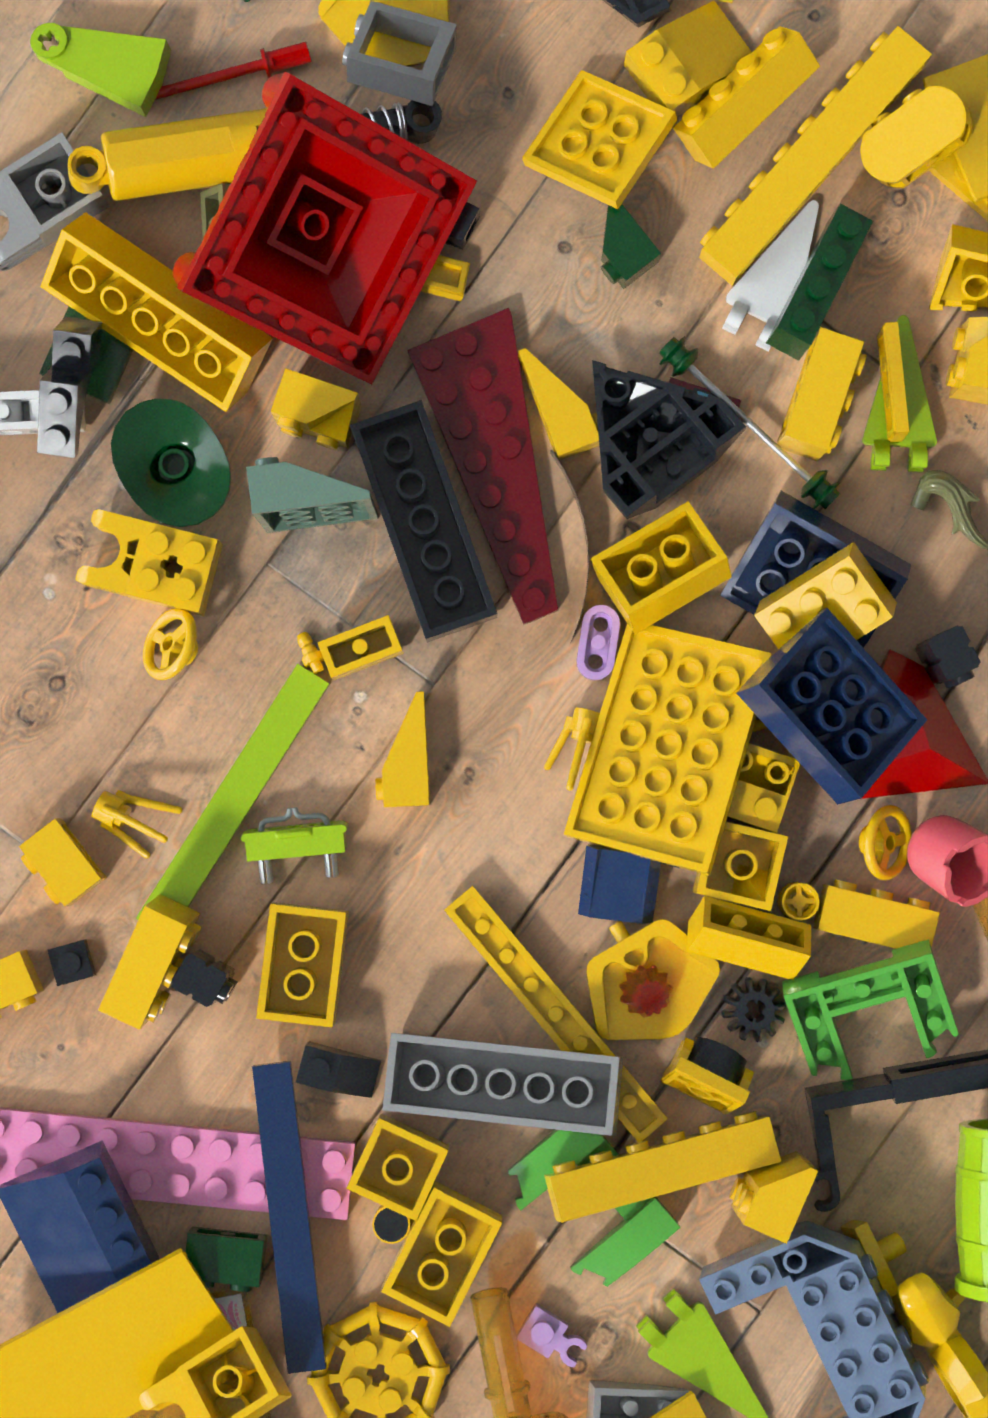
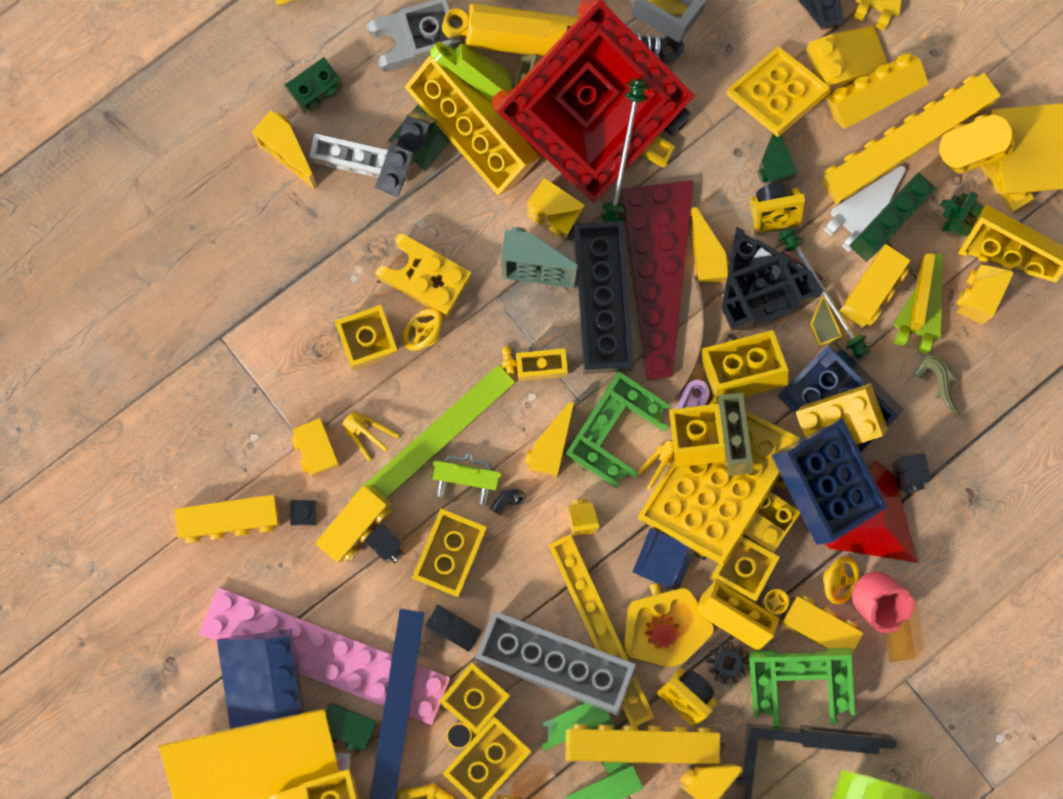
camera: 15 degrees right, 5 degrees down
(89, 679) = (366, 337): none -> yellow slope
(134, 230) = (474, 68): none -> lime piece
(171, 462) = (455, 217): dark green hat -> none
(365, 856) = (508, 497): none -> black arm
(387, 206) = (636, 95): none -> dark green axle
(459, 747) = (585, 445): none -> bright green wedge
(482, 858) = (582, 518): none -> yellow slope
(618, 691) = (697, 435): none -> yellow brick
(638, 309) = (776, 207): none -> yellow piece
(674, 674) = (735, 434): none -> olive brick
(760, 469) = (824, 324): none -> olive tile
(912, 248) = (956, 212): none -> dark green hips

